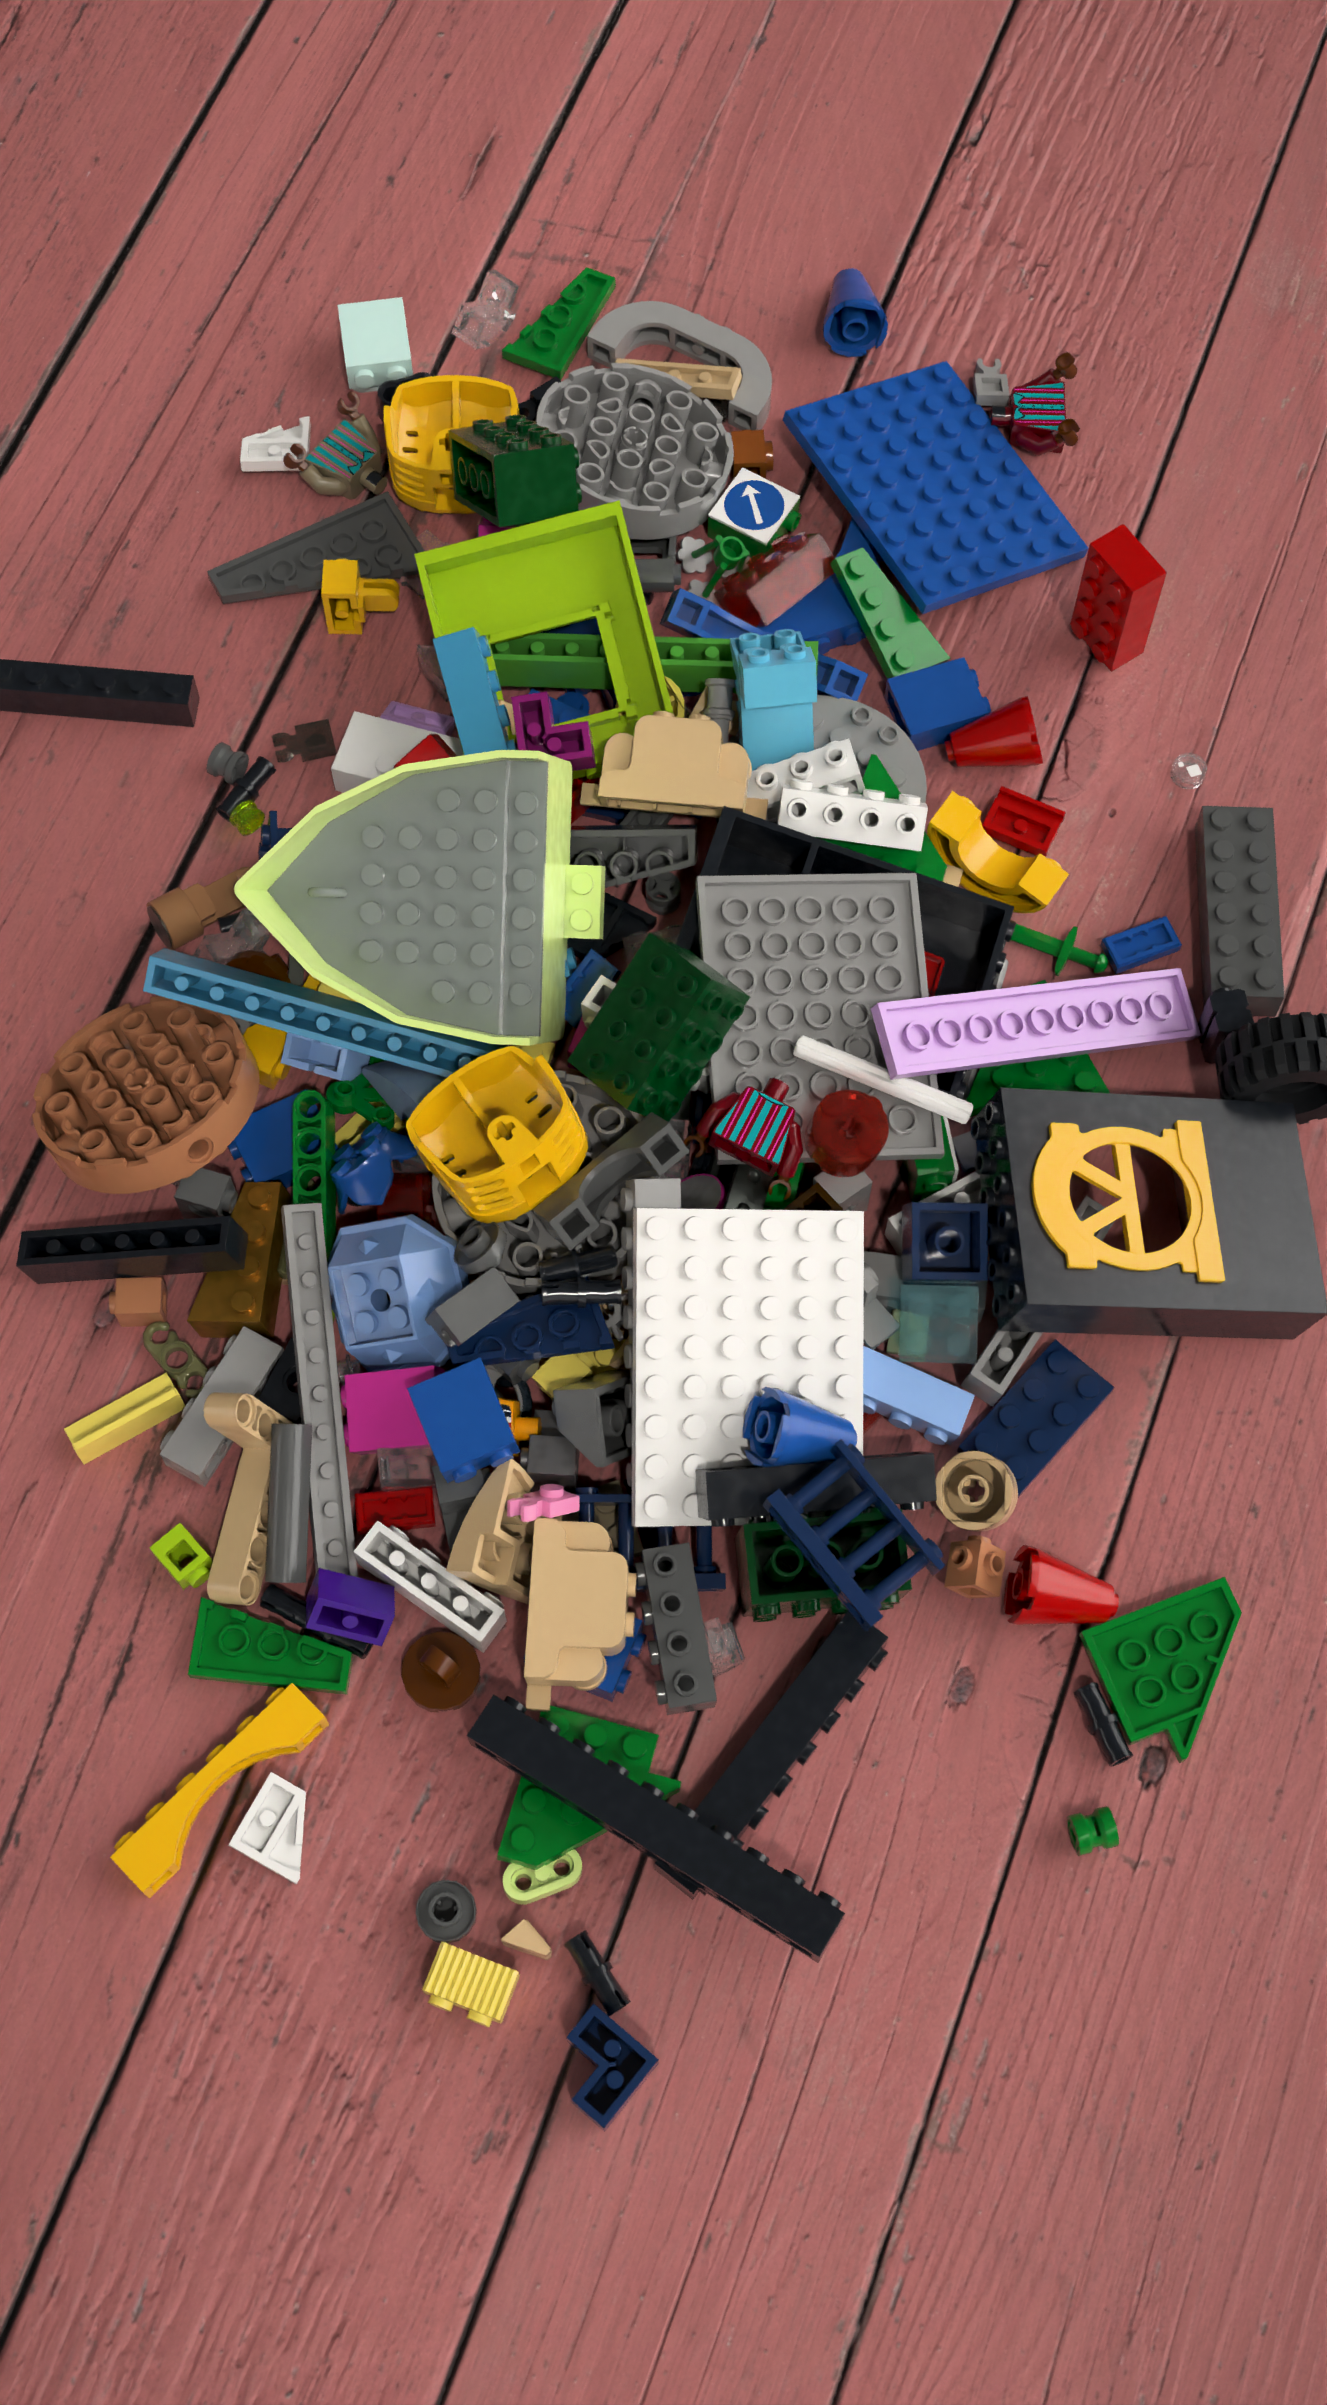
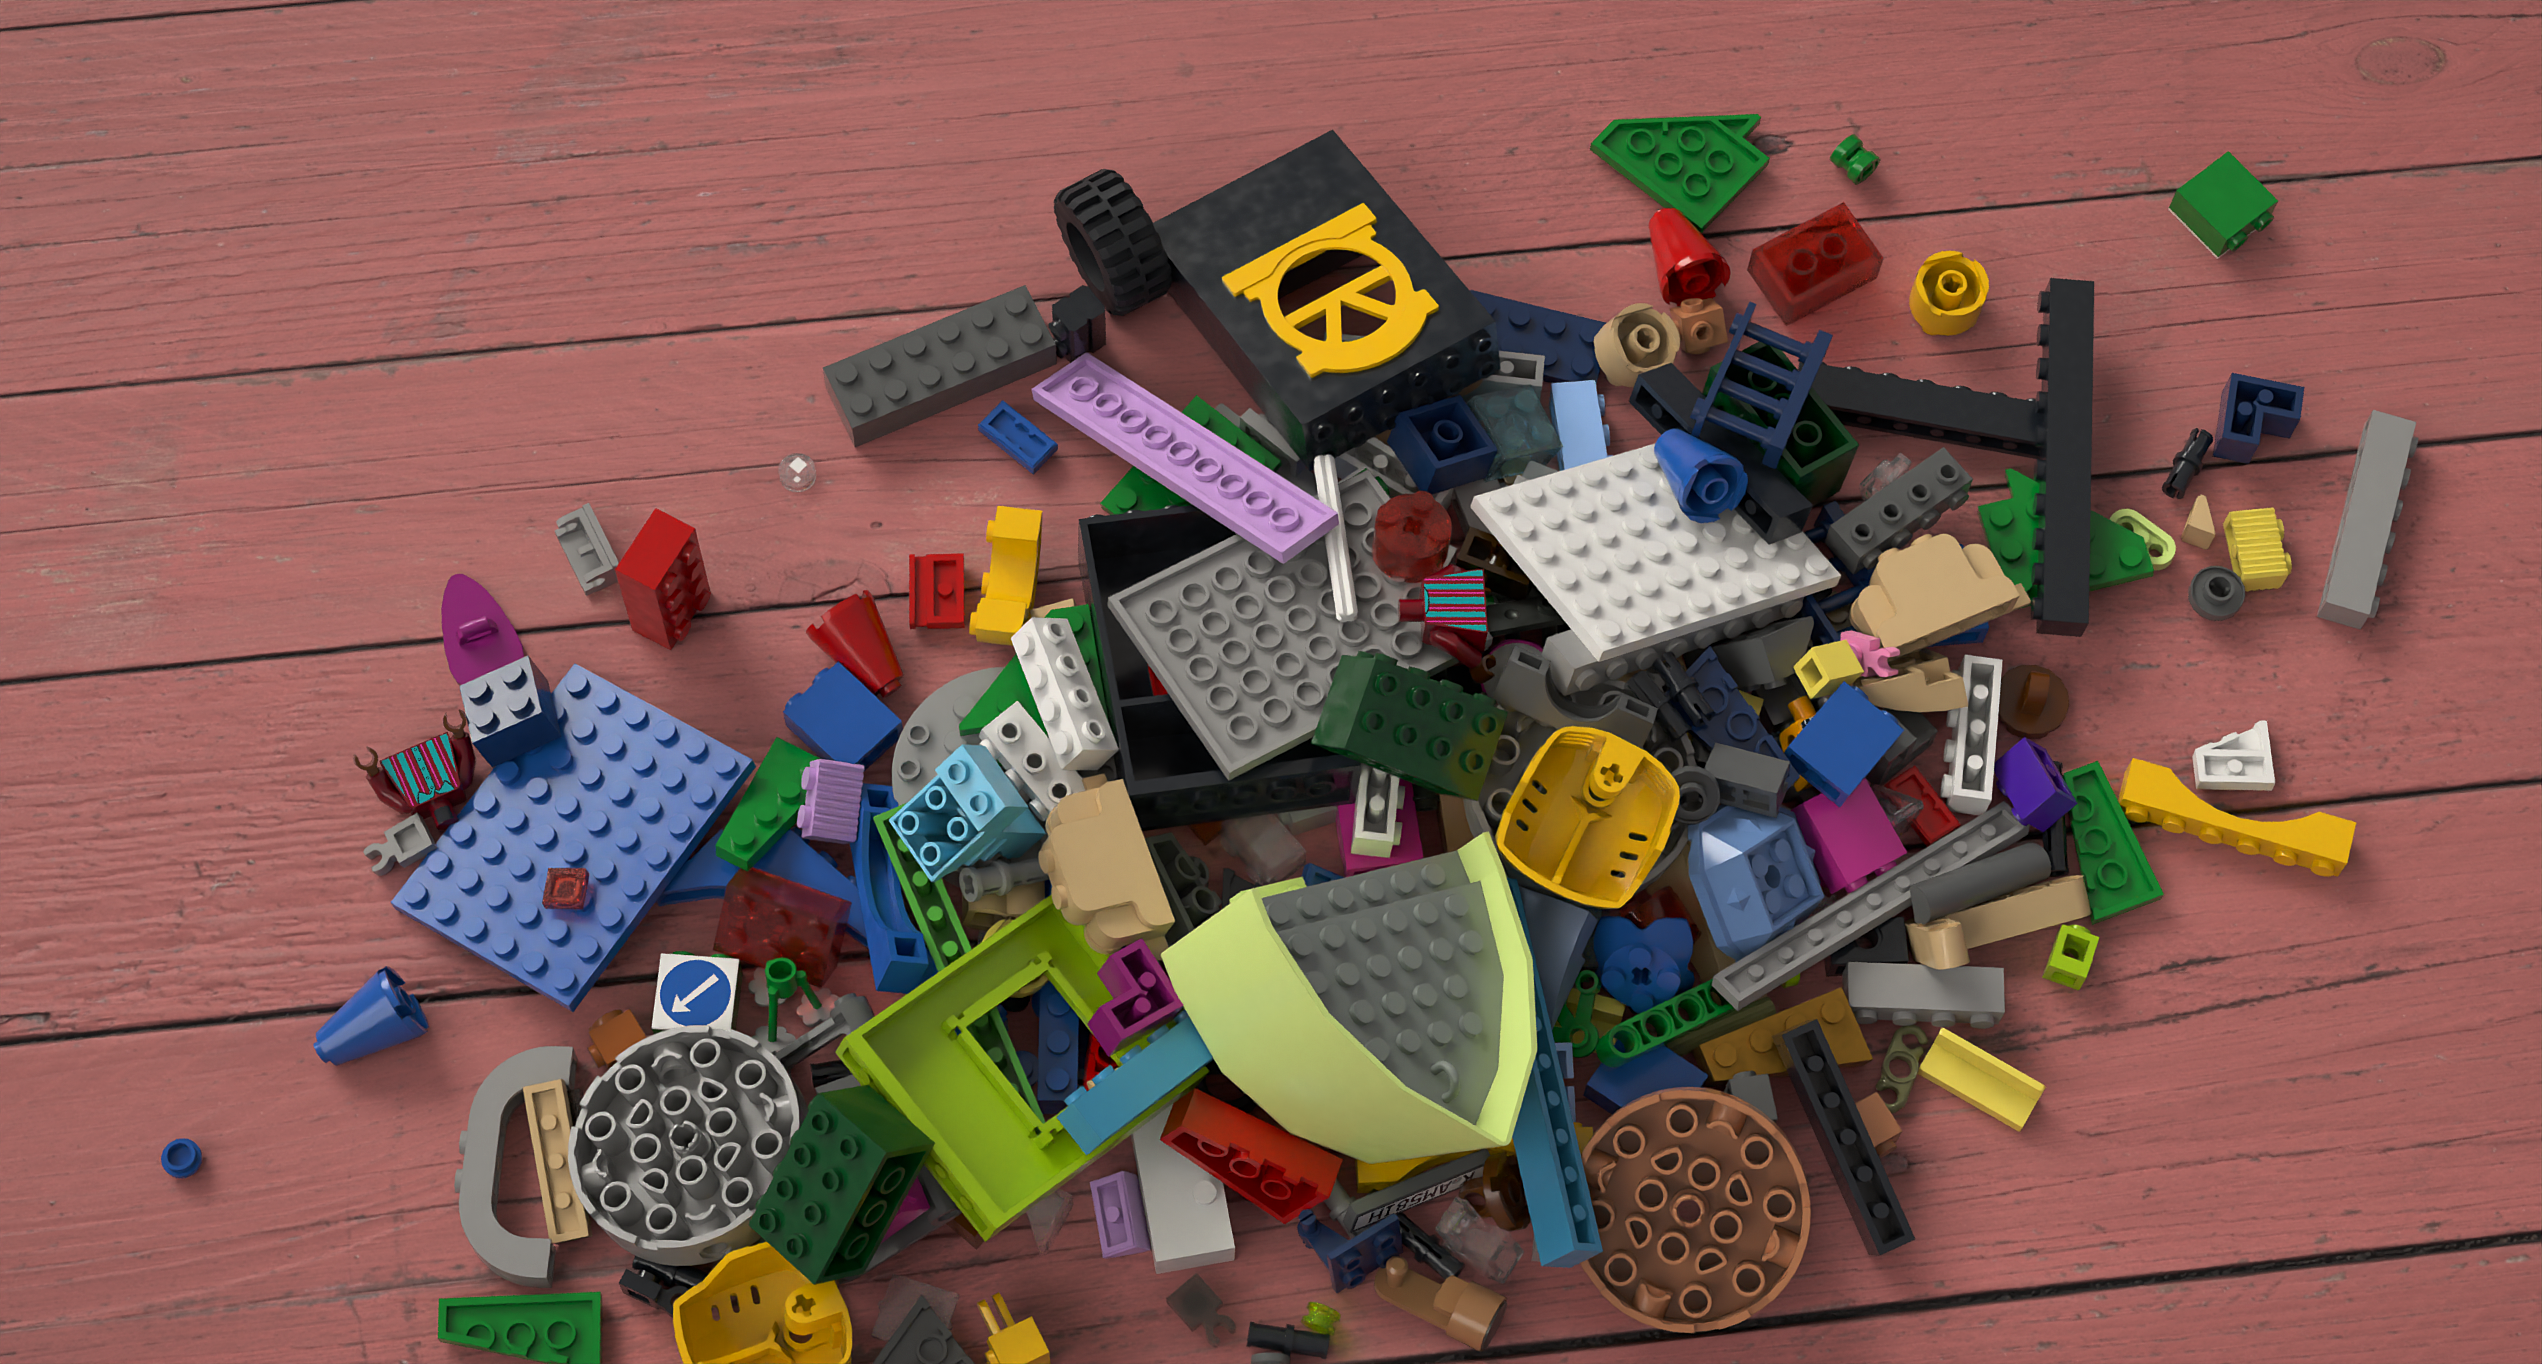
camera: 120 degrees left, 0 degrees up
(442, 2123) = (2367, 520): none -> light grey brick
(539, 1447) = (1827, 668): none -> light yellow brick
(815, 176) = (181, 1158): none -> blue plate
(861, 2195) = (2223, 205): none -> green piece
(863, 647) = (831, 801): none -> lavender brick
(883, 444) = (565, 888): none -> clear red tile
(915, 1820) = (1948, 293): none -> yellow brick
(989, 1715) = (1815, 263): none -> clear red brick
(1061, 476) = (510, 711): none -> brick
(1062, 949) = (1057, 502): green sword -> none
(1103, 1724) = (1764, 186): black pin -> none
(1147, 501) = (475, 631): none -> magenta shield
(1191, 600) = (587, 549): none -> light grey hinge

